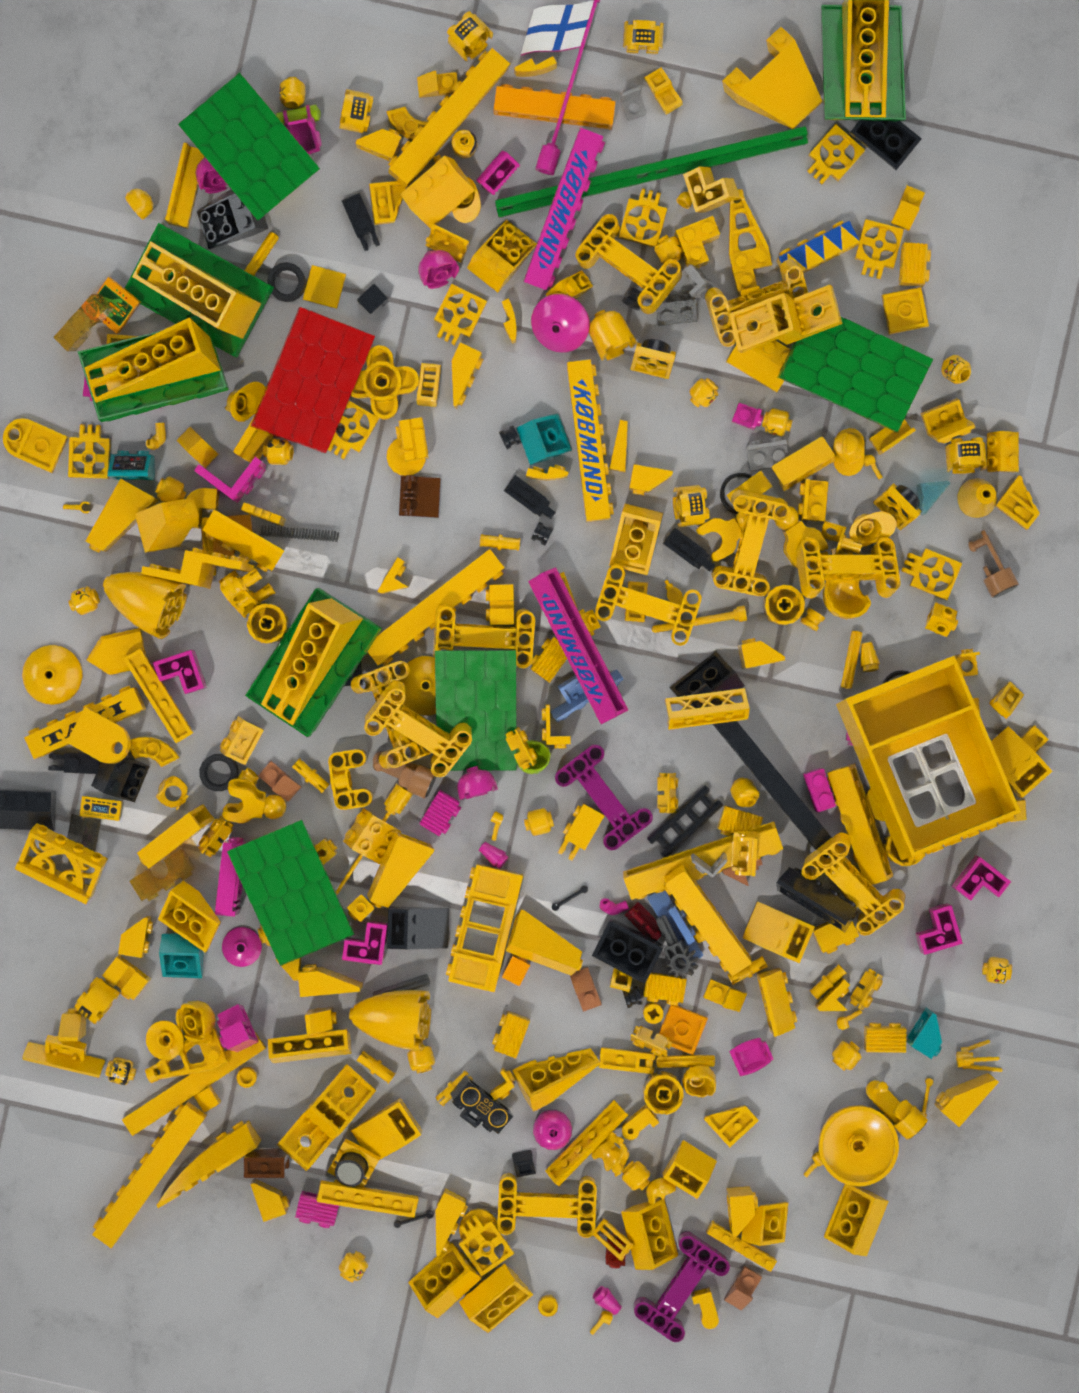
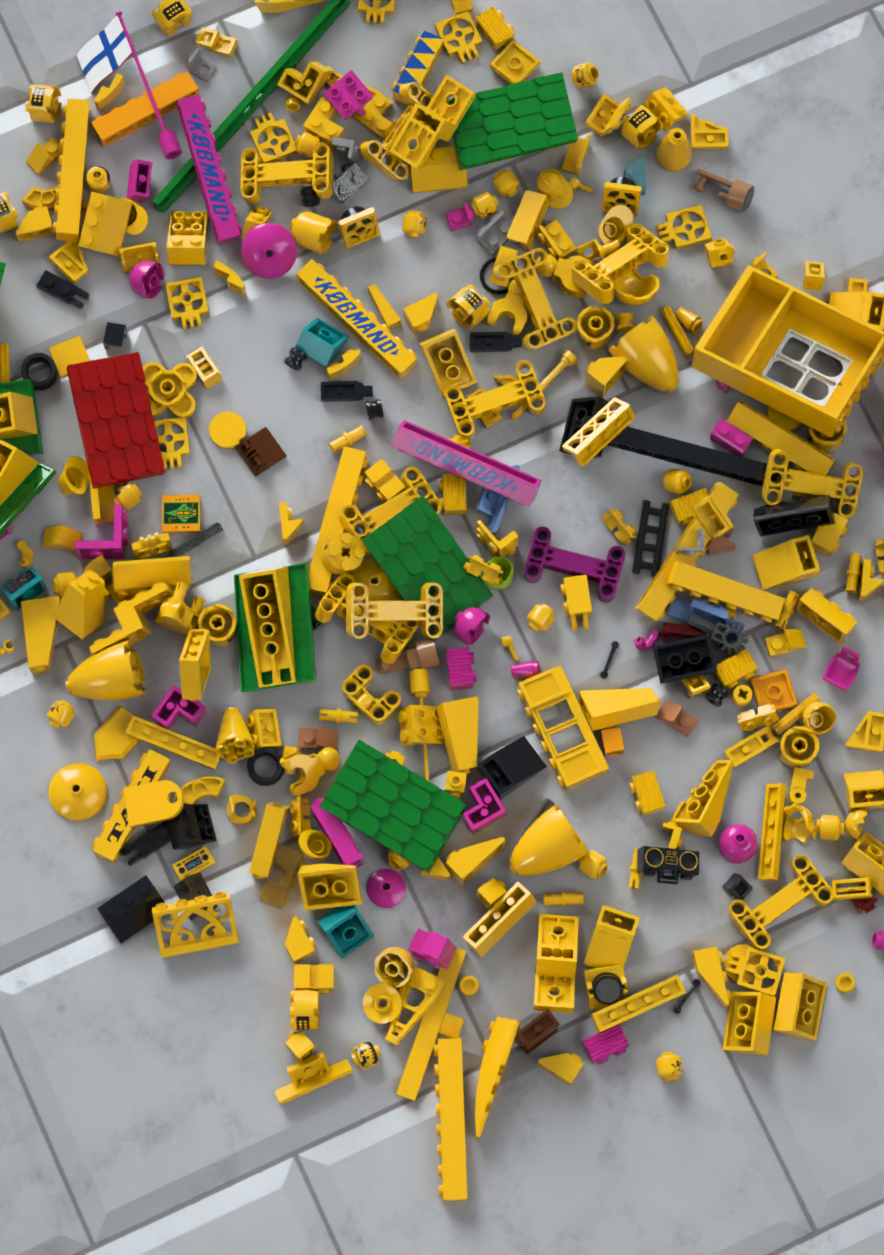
camera: 35 degrees left, 15 degrees down
(206, 869) = (315, 844): none -> yellow hat
(210, 729) = (234, 737): none -> yellow cone
(223, 647) = (195, 664): none -> yellow window
(312, 500) = (181, 514): none -> tile
(405, 639) = (352, 551): none -> yellow brick
(413, 439) = (223, 411): yellow brick -> none
(464, 364) = (220, 335): yellow slope -> none
(735, 234) = (349, 95): none -> dark pink bracket
(806, 666) = (649, 356): none -> yellow cylinder
(810, 416) = (506, 183): none -> yellow head

